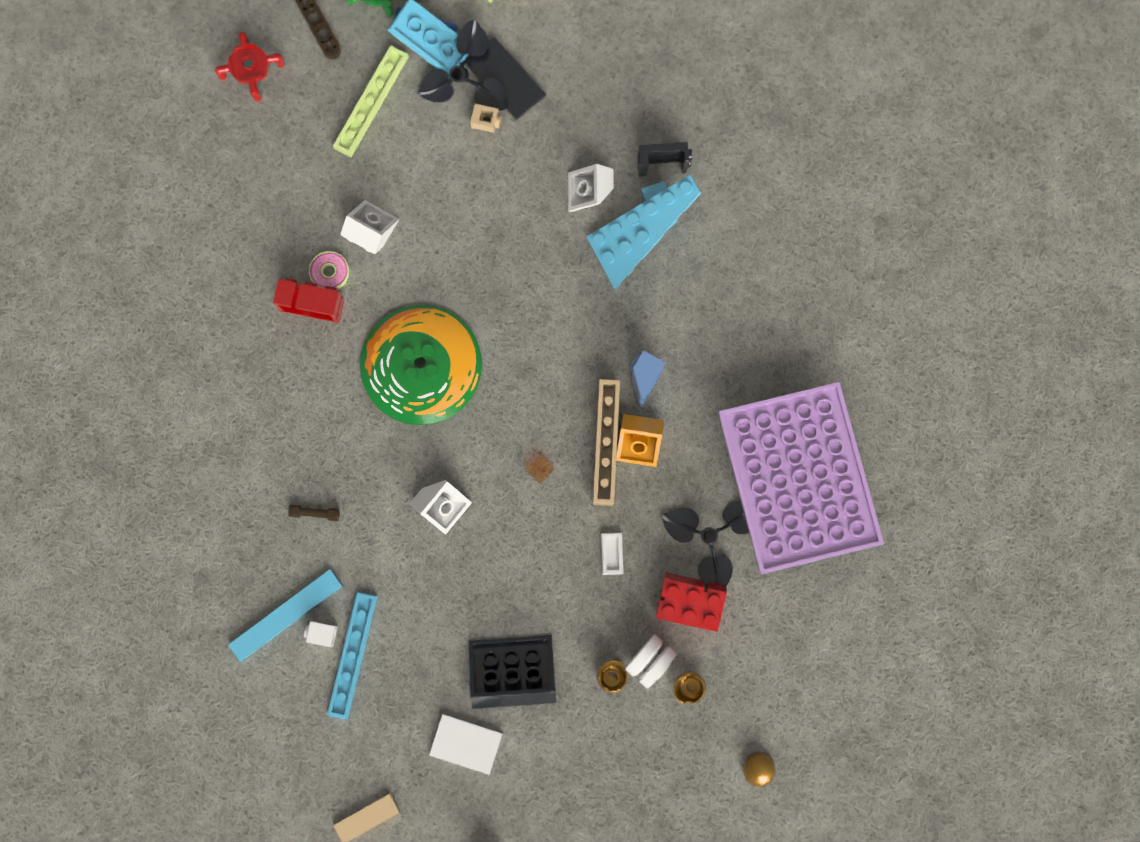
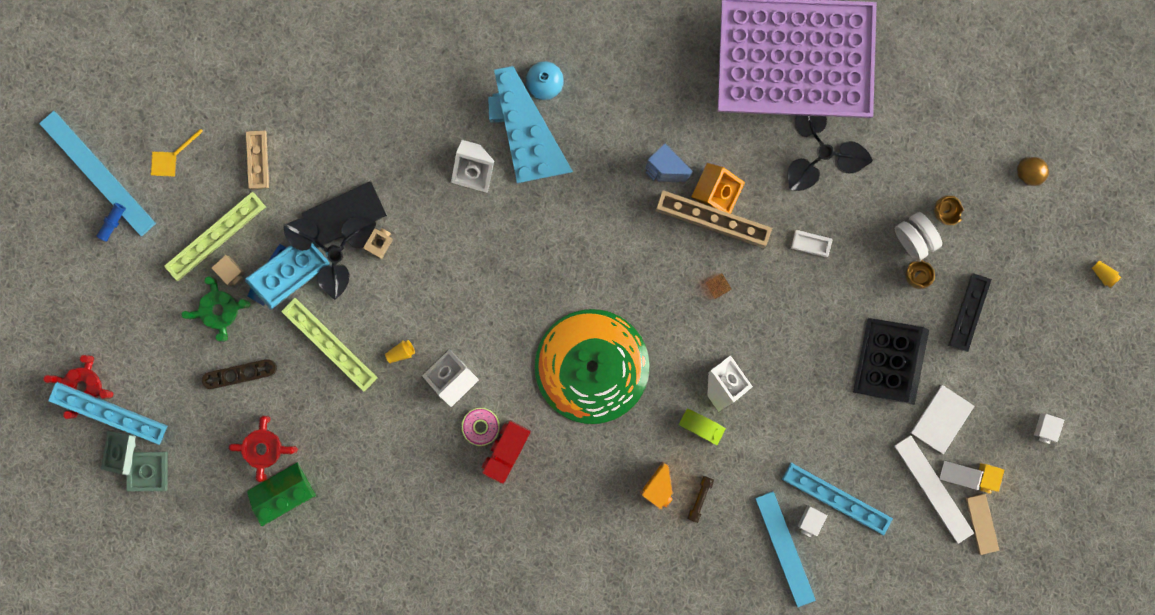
camera: 80 degrees left, 5 degrees up
(208, 96) = (280, 494): none -> green slope
(312, 464) = (658, 488): none -> light orange slope
(382, 171) = (400, 352): none -> yellow cone
(388, 491) = (702, 426): none -> lime brick
(389, 756) = (933, 489): none -> white tile
(411, 780) = (961, 475): none -> white tile
(416, 811) = (991, 478): none -> yellow brick
(587, 742) = (969, 312): none -> black plate
(663, 154) = (459, 107): black panel -> none
(689, 603) = (877, 187): red piece -> none
(698, 242) = (543, 88): none -> medium azure cylinder

